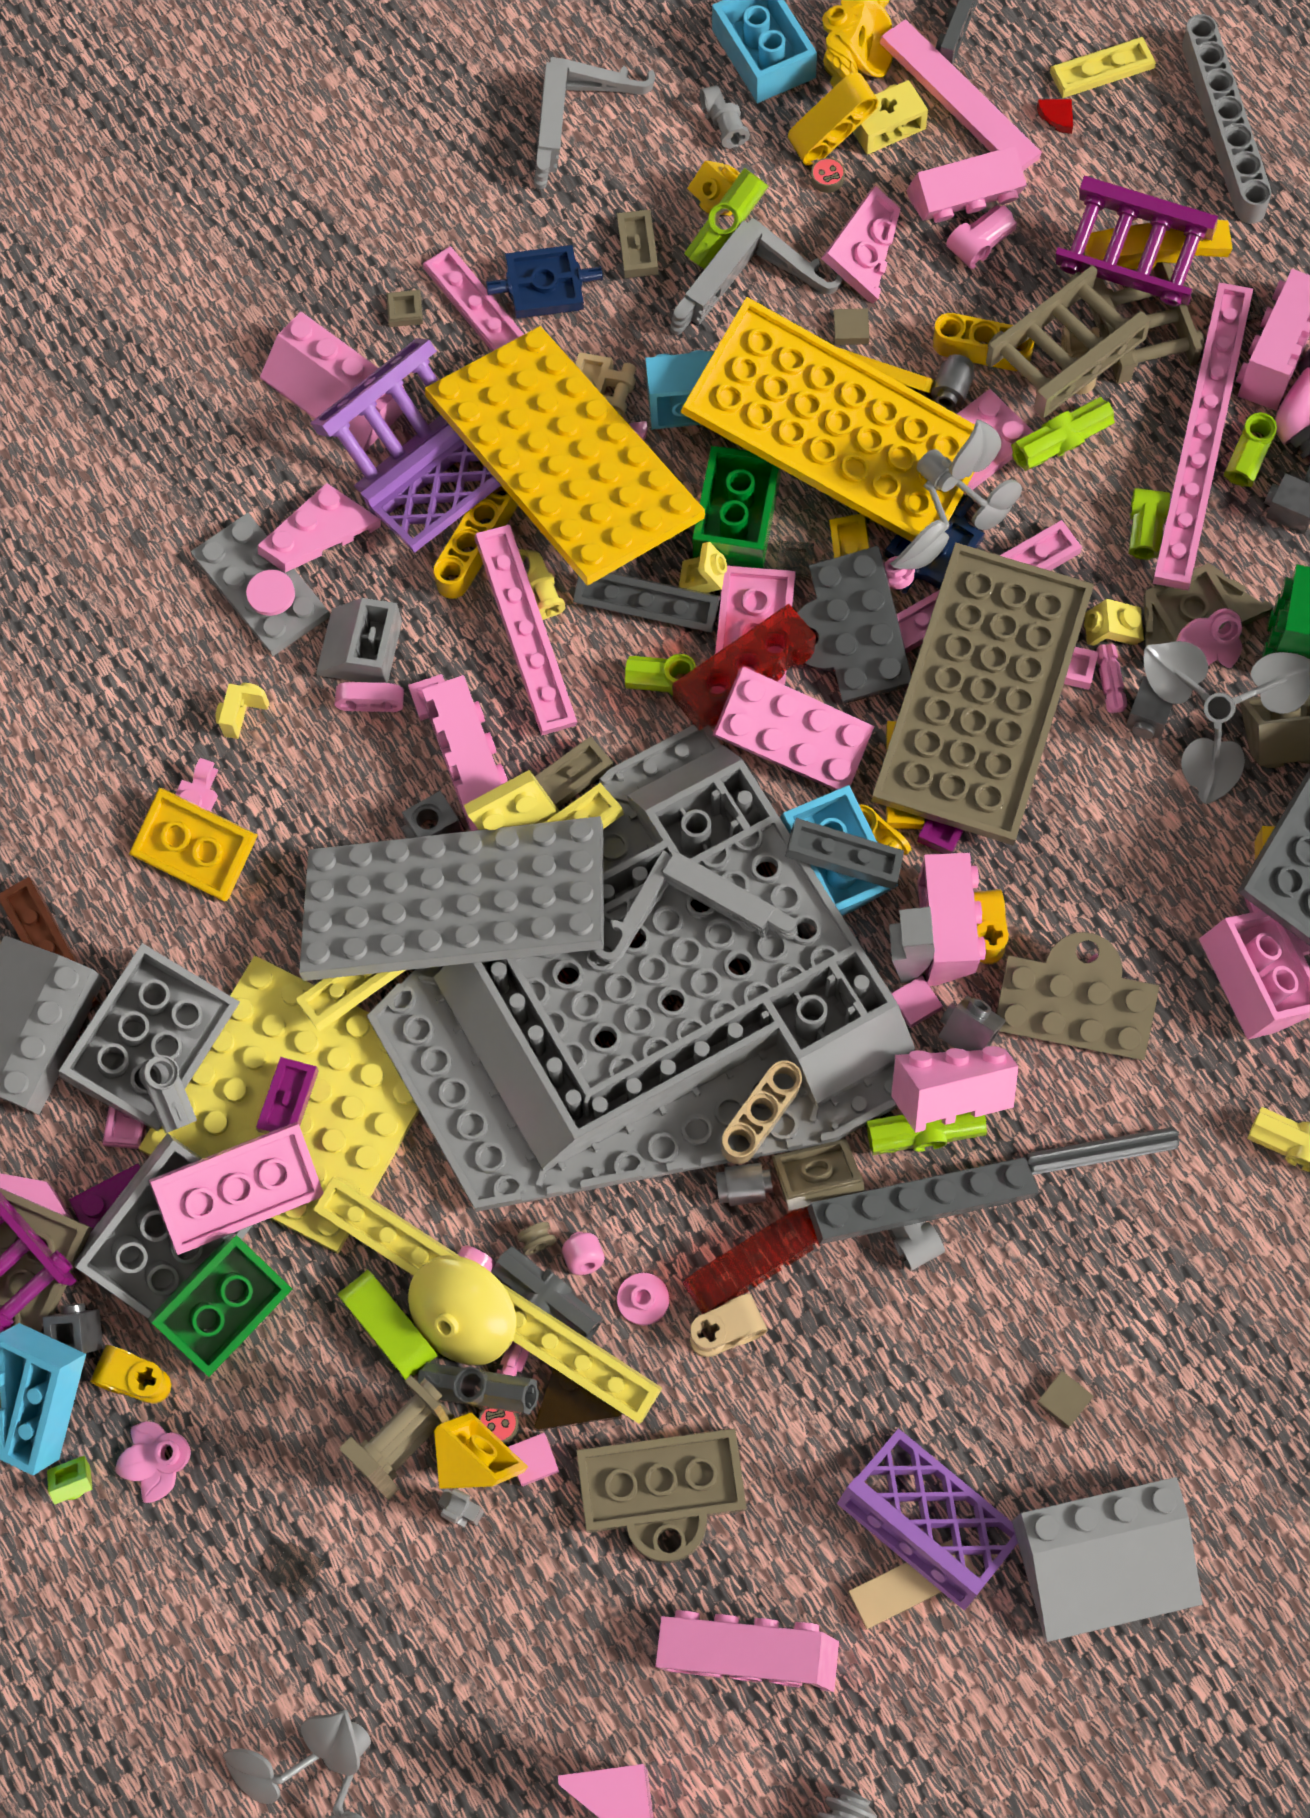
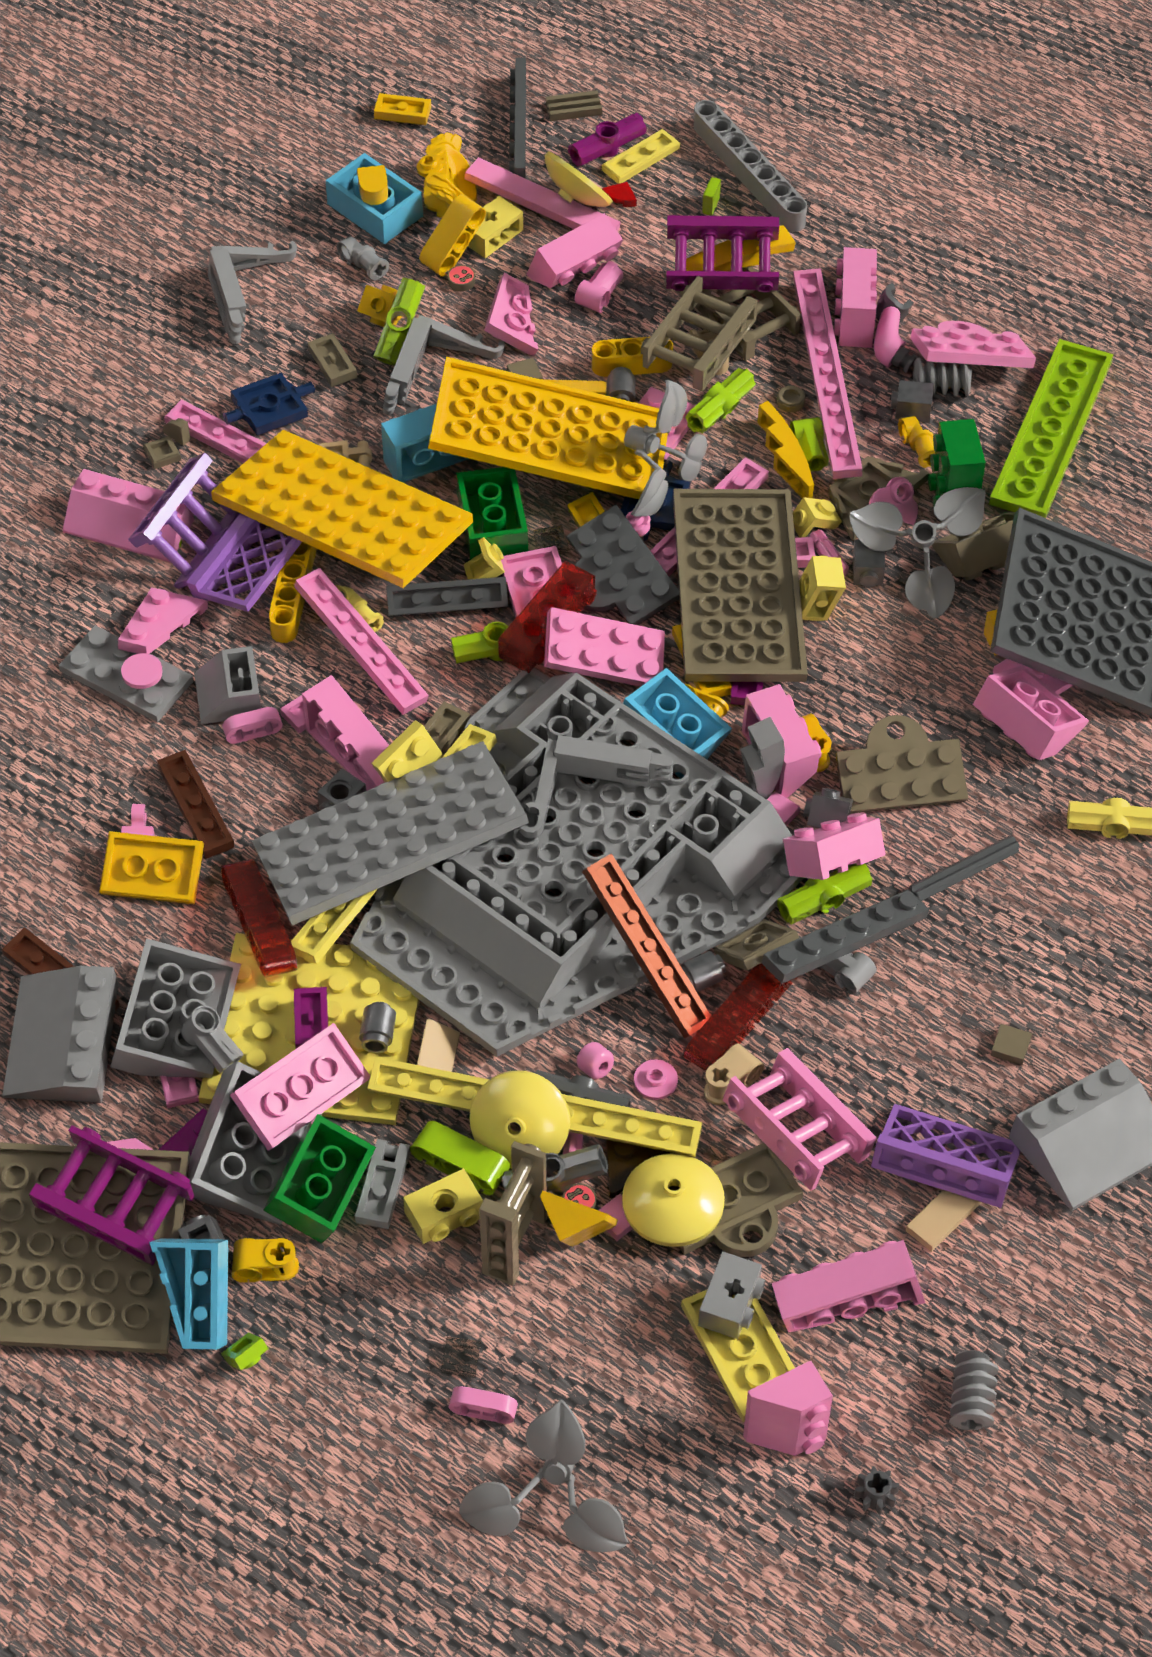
camera: 25 degrees left, 15 degrees down
(148, 1463) = (303, 1319): bright pink plate -> none
(237, 698) = (148, 753): light yellow bracket -> none
(271, 777) = (195, 803): none -> copper plate
(279, 951) = (259, 918): none -> clear red beam
(292, 1326) = (382, 1184): none -> light grey plate
(295, 1641) = (483, 1405): none -> bright pink beam
(324, 1372) = (451, 1191): none -> light yellow brick
(353, 1135) = (377, 1027): none -> flat silver brick
(414, 1182) = (438, 1046): none -> tan slope
(431, 286) = (178, 430): none -> dark tan tile
(459, 1508) = (576, 1264): light grey plate -> none
(536, 1238) = (553, 1059): dark tan bush -> none
(602, 1494) = (670, 1215): none -> light yellow dish
(604, 1677) = (741, 1361): none -> light yellow plate
(613, 1593) = (731, 1277): none -> light grey brick
(685, 1142) = (647, 945): none -> plate
(762, 28) = (373, 184): none -> yellow piece
(767, 1094) = (695, 923): tan beam -> none
(802, 1387) = (817, 1100): none -> bright pink fence
(844, 853) = (684, 711): dark grey plate -> none
(1002, 89) = (574, 184): none -> light yellow dish
(1069, 34) = (607, 139): none -> magenta piece
(1076, 729) = (821, 587): none -> light yellow brick
(1113, 535) = (788, 454): none -> yellow slope
(1150, 453) = (790, 399): none -> dark tan tile
(1163, 148) = (711, 196): none -> lime tile
(1251, 450) = (865, 374): lime piece -> none
(1278, 556) = (918, 439): none -> yellow connector

